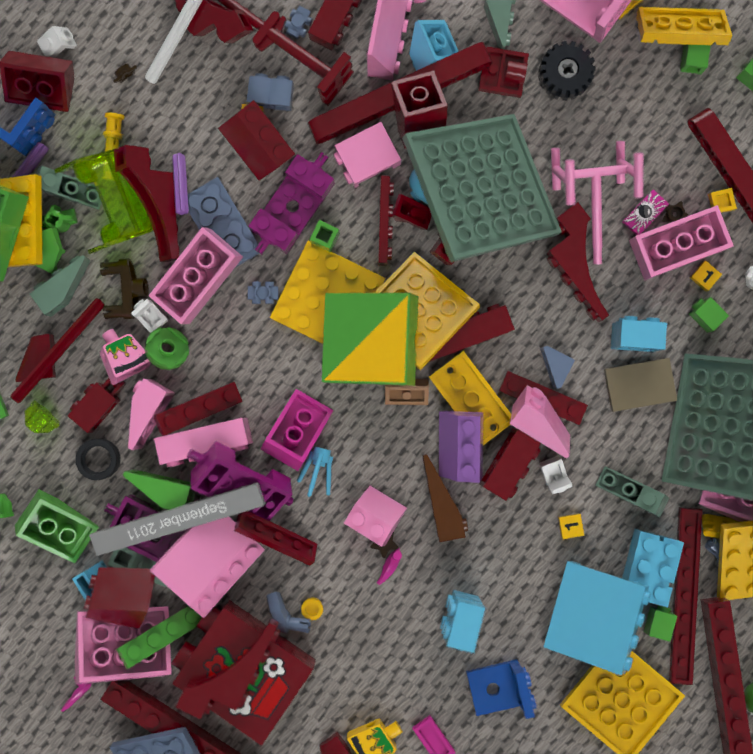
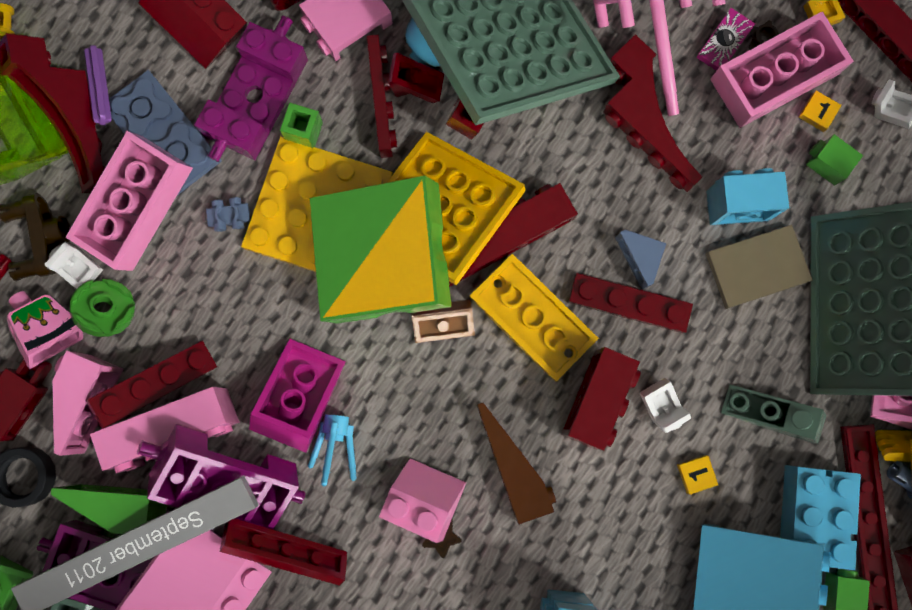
camera: 10 degrees left, 5 degrees down
(390, 565) = (454, 568): dark pink bar -> none
(461, 446) = (528, 384): medium lavender slope -> none
(538, 419) = (627, 329): bright pink slope -> none

